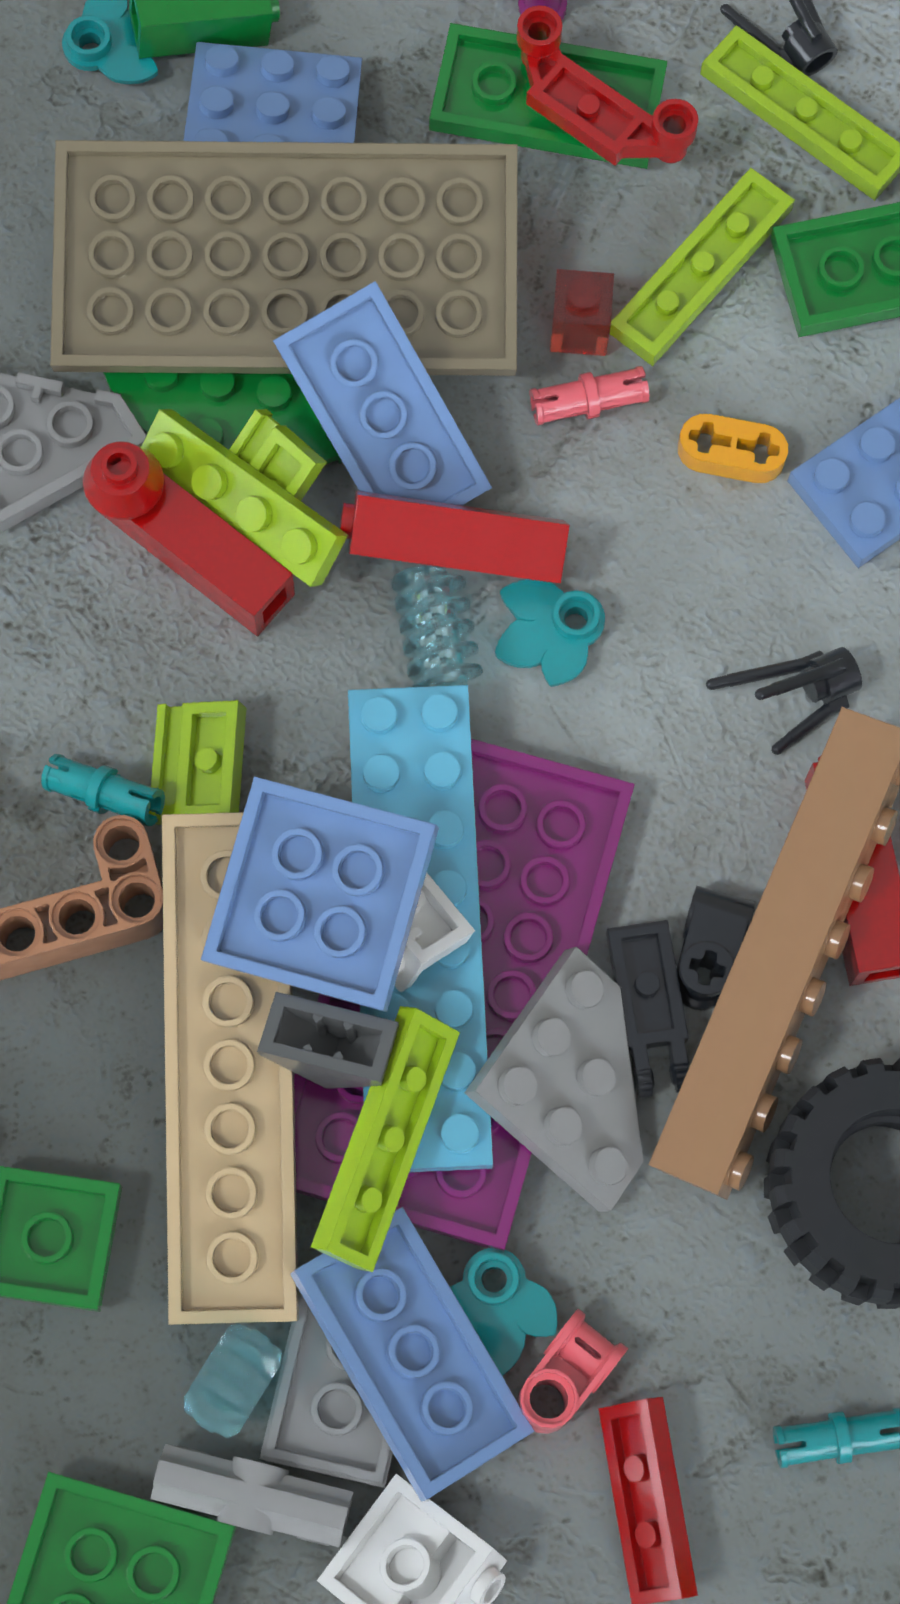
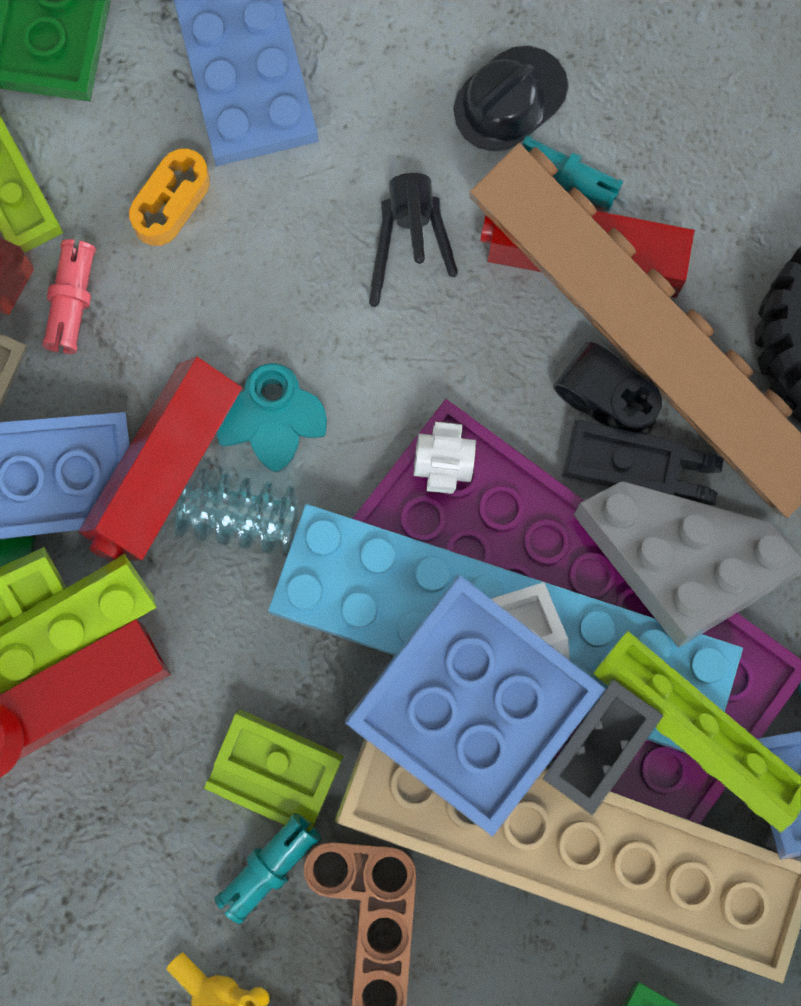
camera: 70 degrees left, 5 degrees up
(566, 796) = (444, 457): none -> white gear

